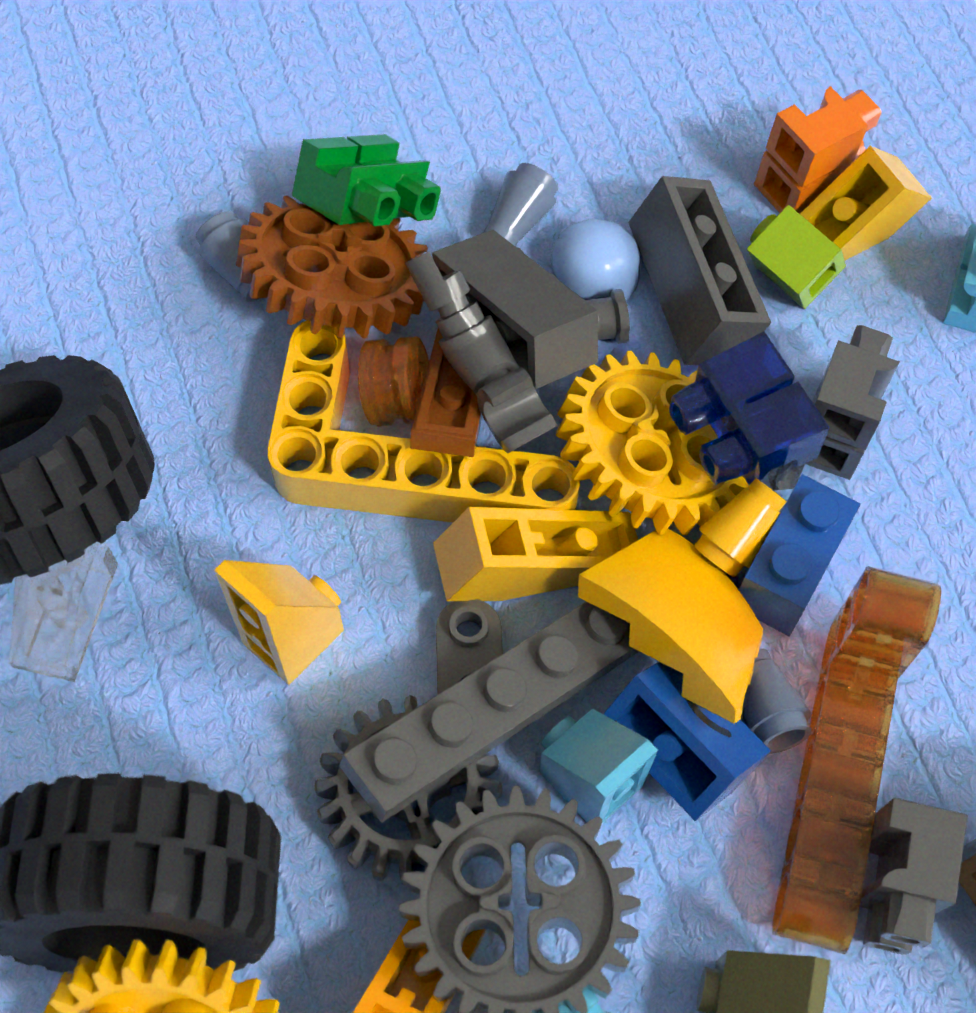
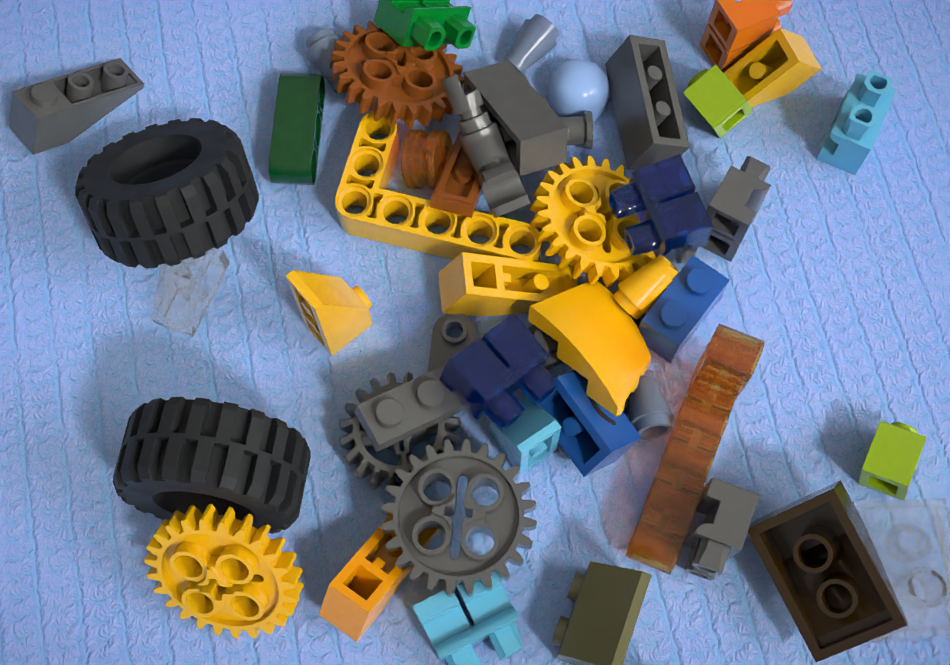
camera: 10 degrees right, 5 degrees up
(197, 359) = (297, 129): none -> dark green beam
(546, 671) = (497, 367): none -> clear blue hips

